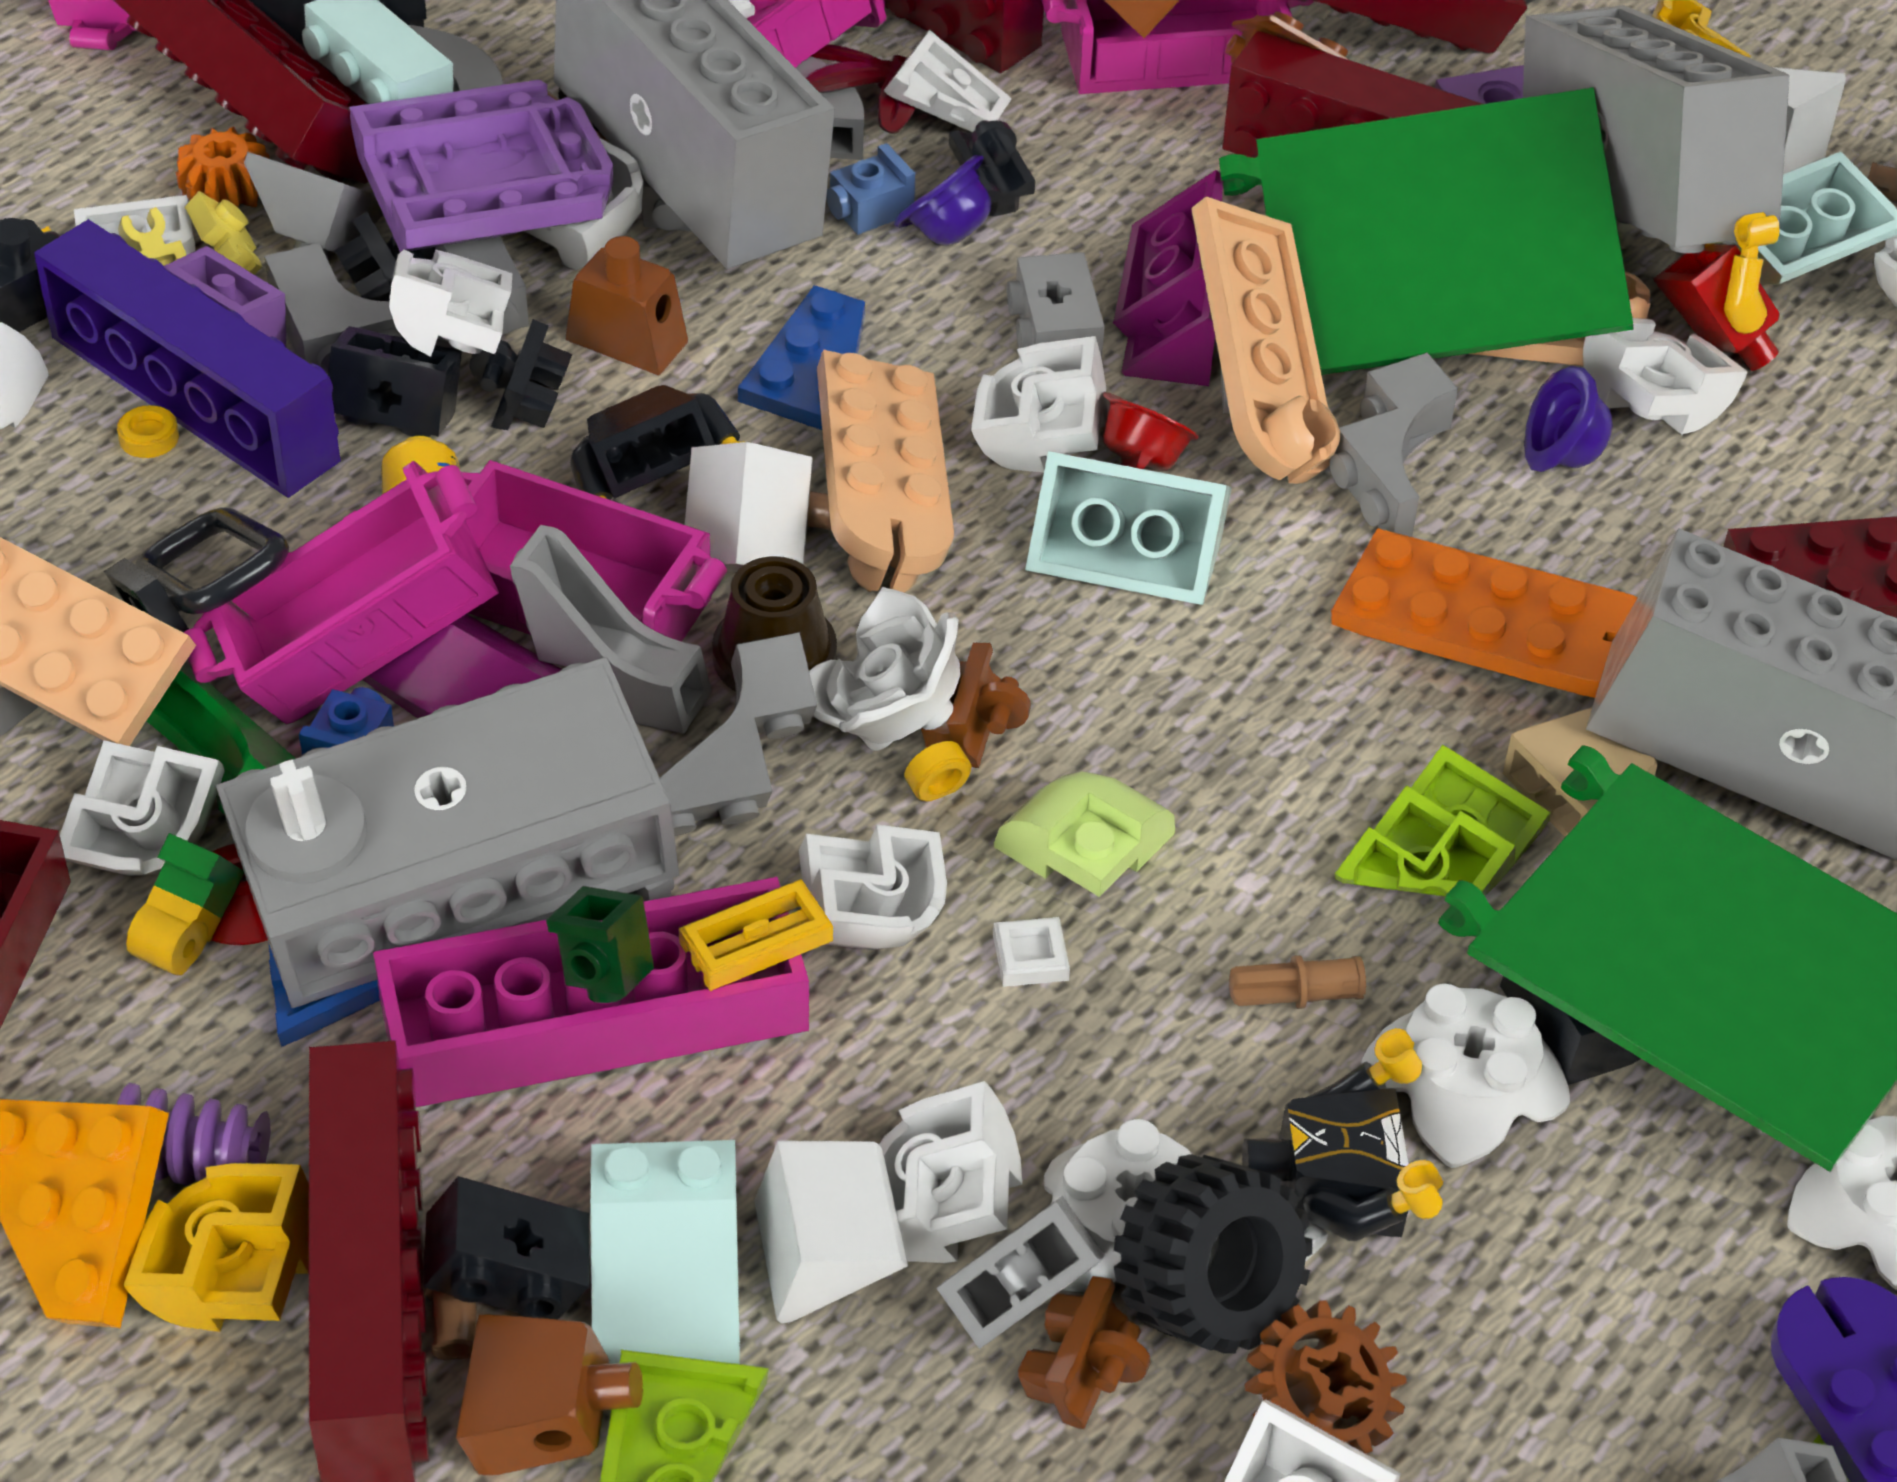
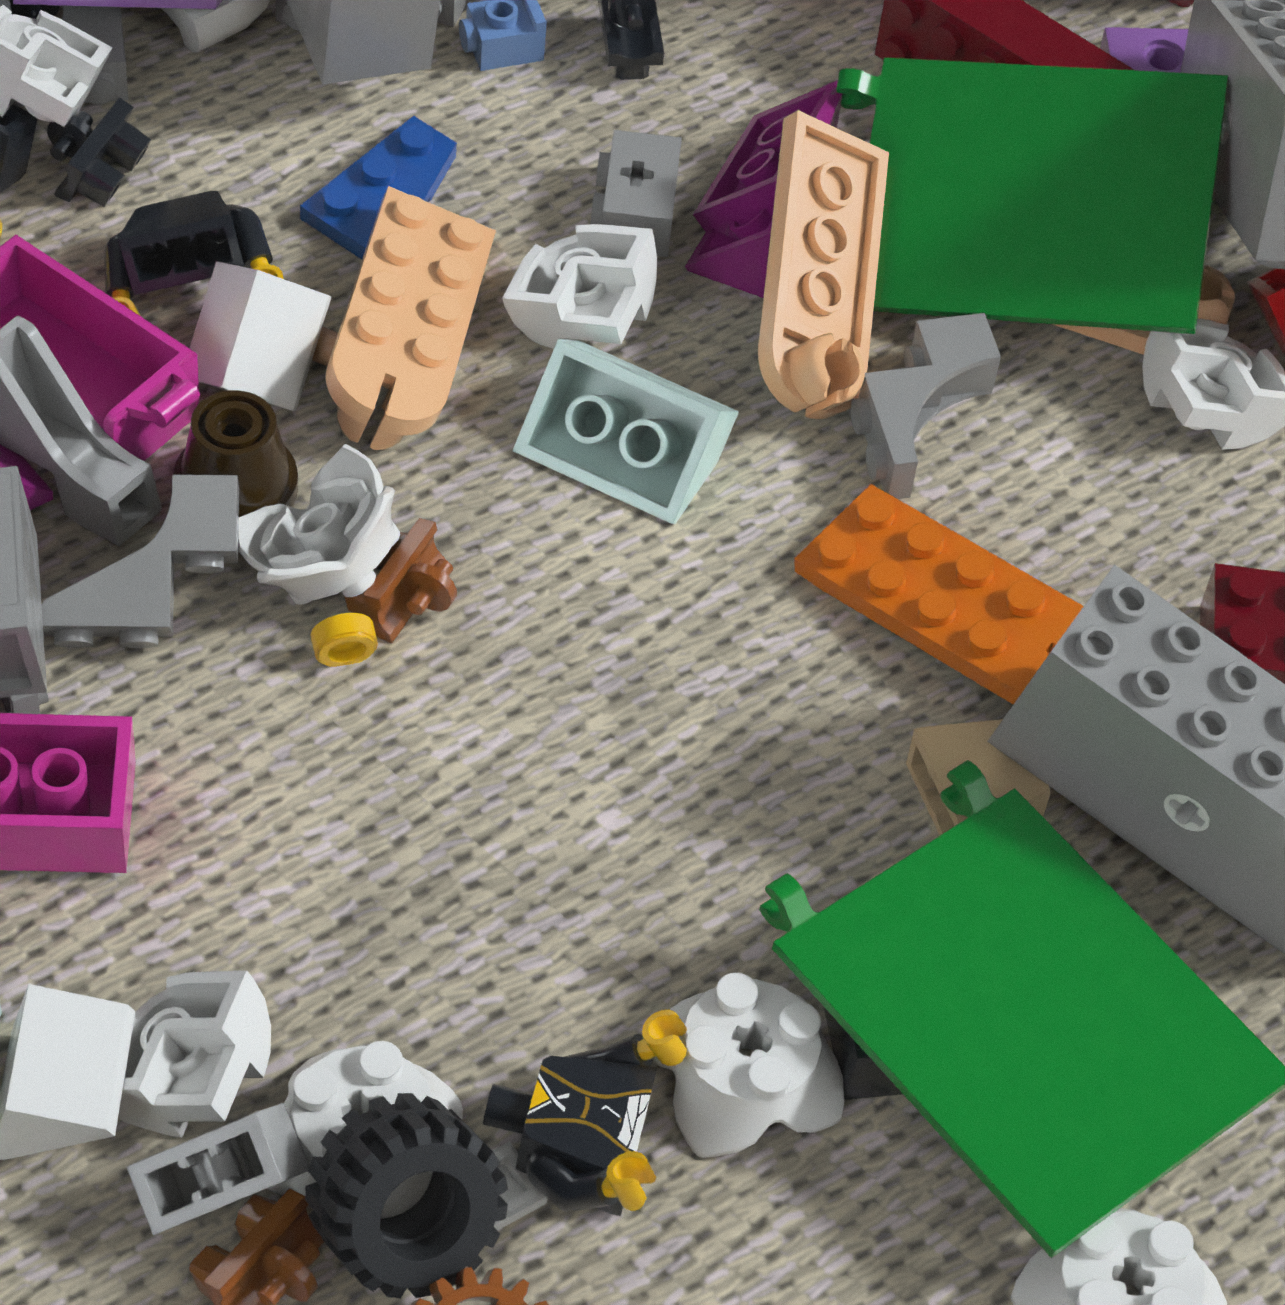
camera: 10 degrees right, 5 degrees up
(627, 308) = (217, 105): dark orange torso -> none
(762, 941) = (88, 779): yellow tile -> none
(876, 889) = (230, 746): white brick -> none
(951, 208) = (574, 63): dark purple hat -> none
(1031, 951) = (369, 842): white tile -> none
(1086, 830) = (466, 732): yellowish green brick -> none
(1144, 436) = (674, 335): red piece -> none
(1298, 981) = (614, 933): medium nougat axle -> none
(1446, 830) = (820, 815): lime slope -> none
(1567, 422) = (1103, 415): dark purple hat -> none

